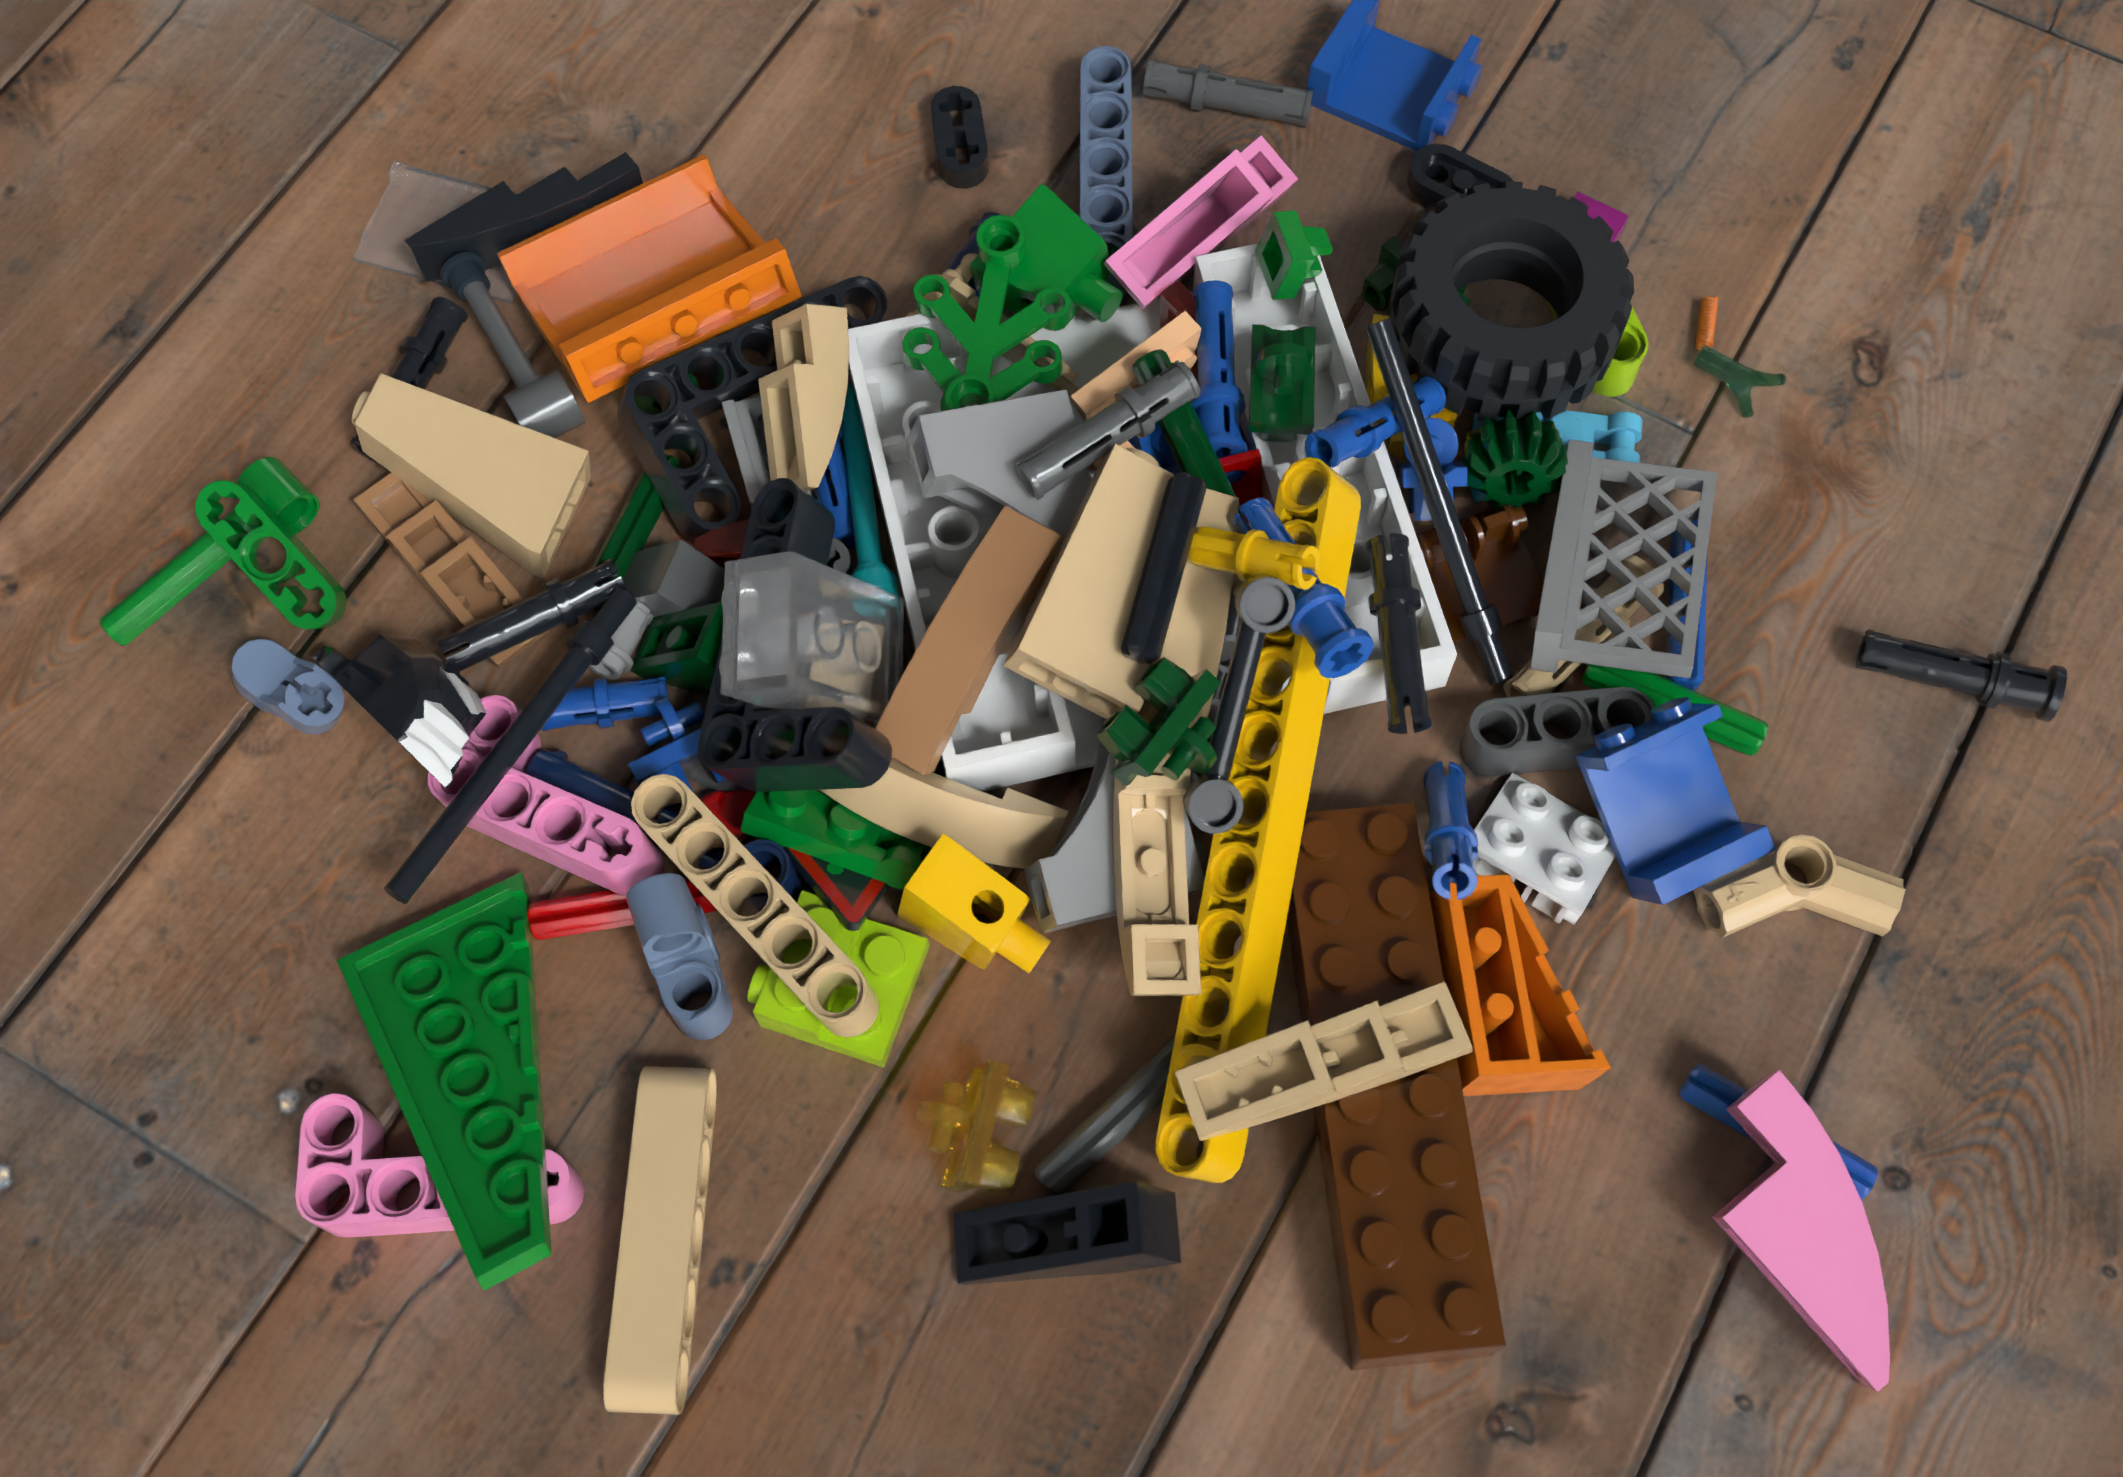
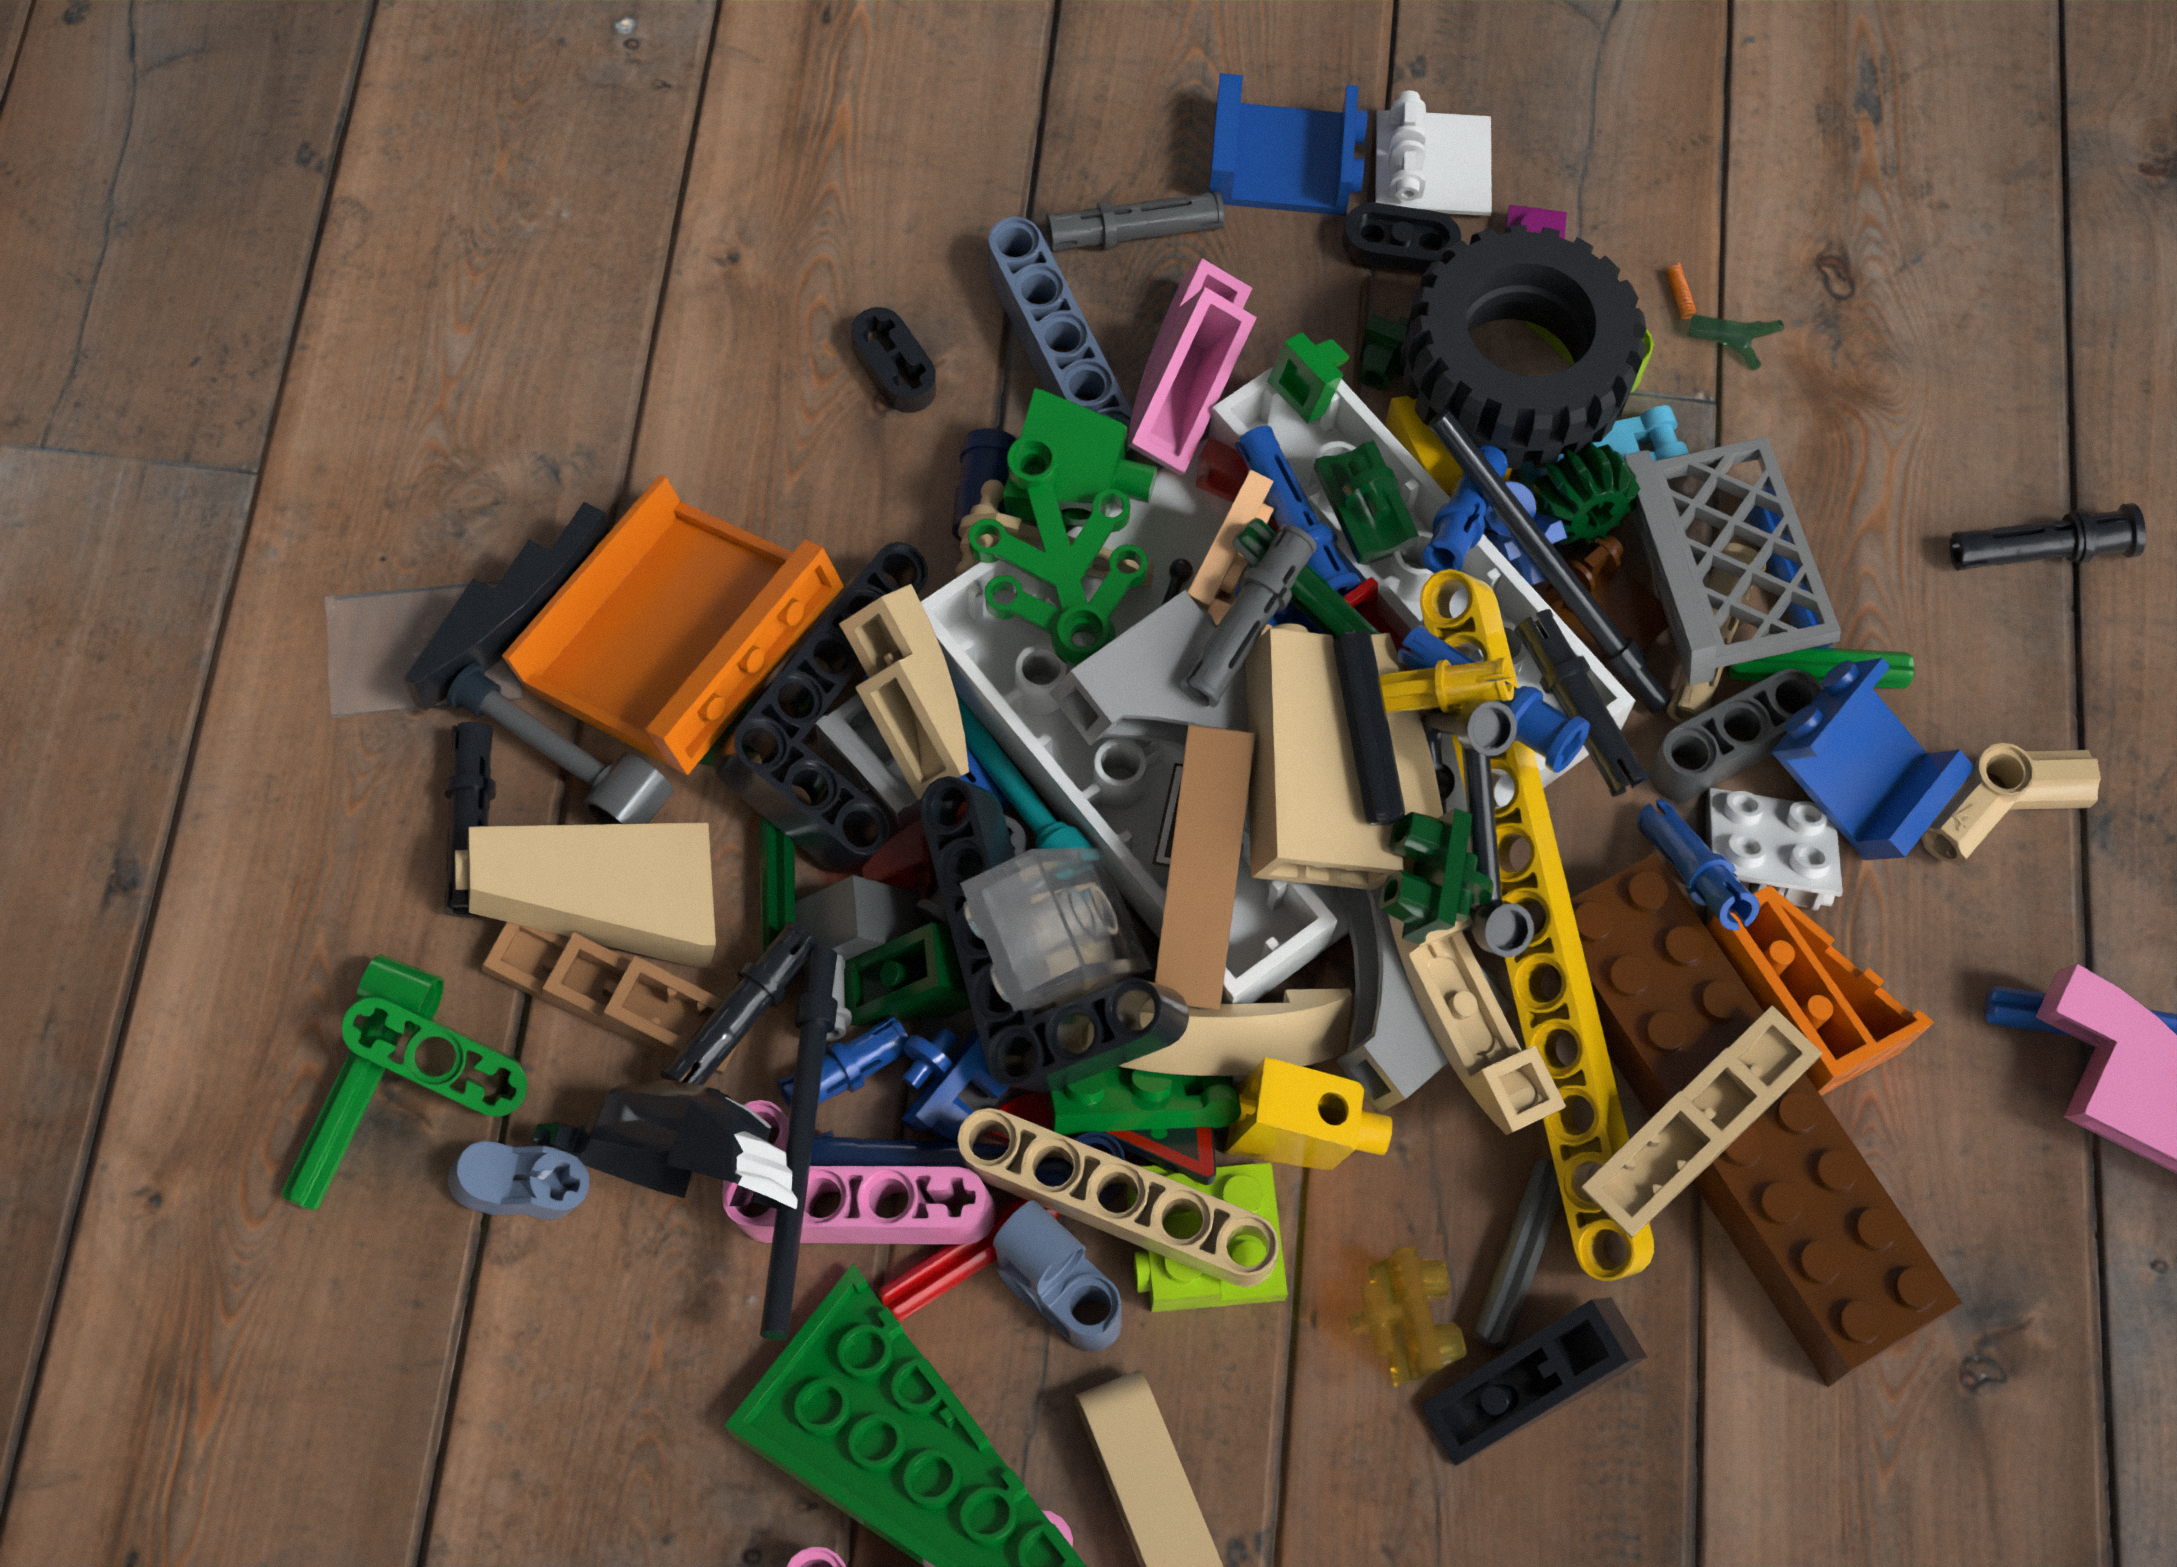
camera: 30 degrees left, 0 degrees up
(1527, 129) = (1433, 159): none -> white hinge

